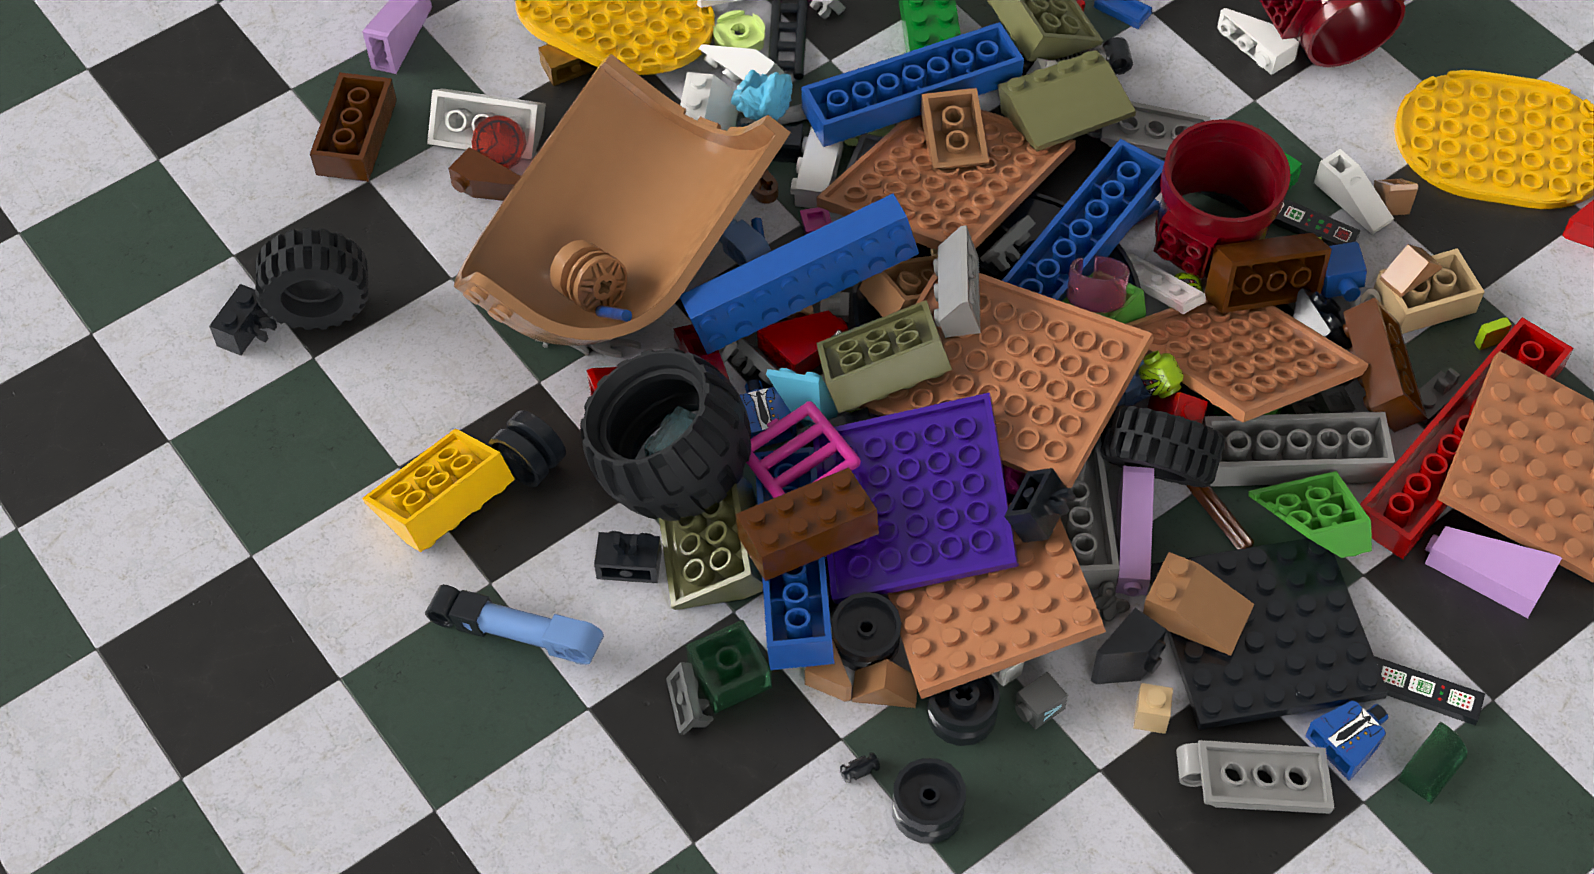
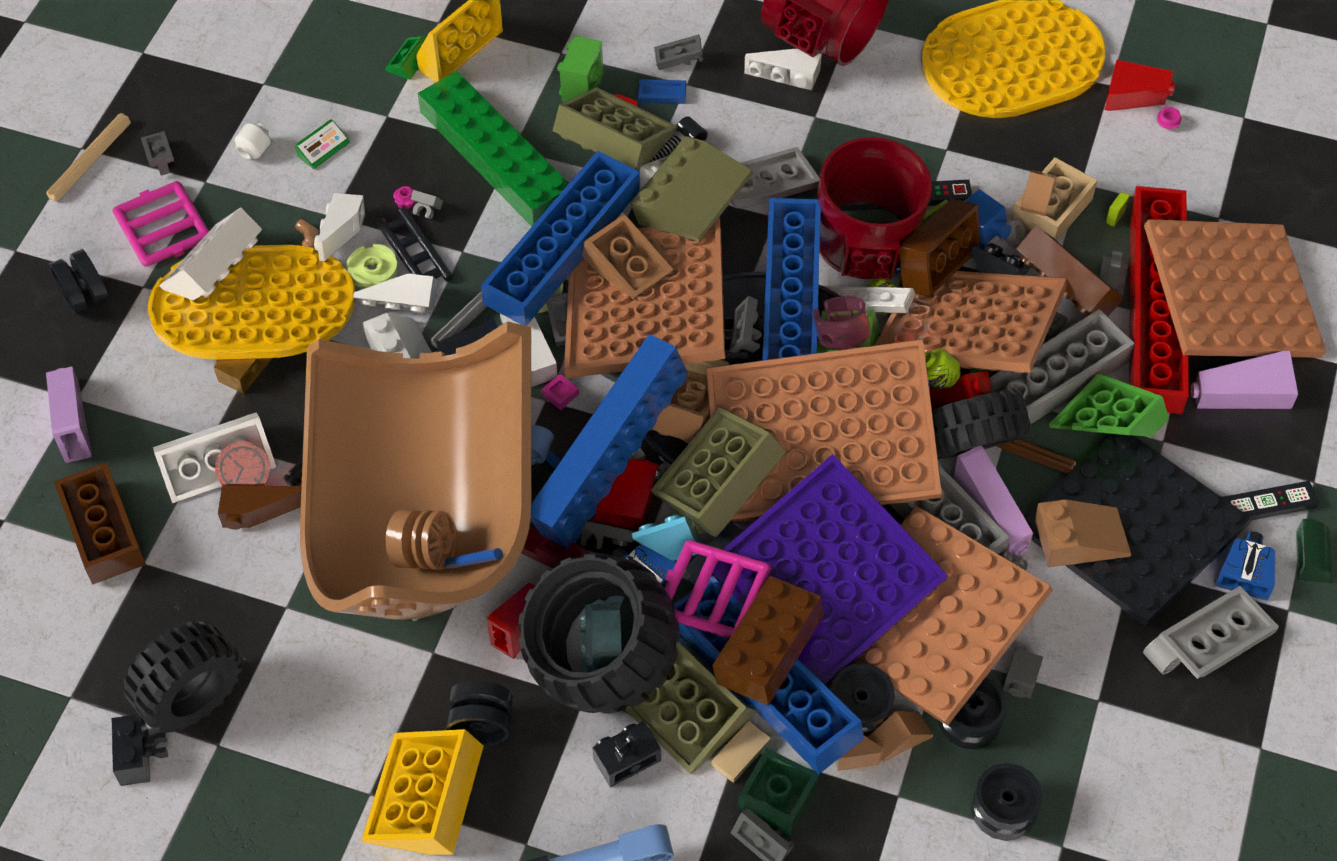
camera: 35 degrees left, 0 degrees up
(727, 612) = (741, 751): none -> tan tile
(763, 95) = (444, 309): medium azure hair -> none
(859, 767) = (931, 809): black piece -> none
(957, 285) = (742, 381): light grey slope -> none
(1038, 505) = (932, 520): black brick -> none
(1130, 650) = (1068, 588): black slope -> none
(1153, 708) = (1105, 629): tan brick -> none
(1351, 189) = (945, 152): white slope -> none
(1397, 194) = (973, 138): medium nougat slope -> none

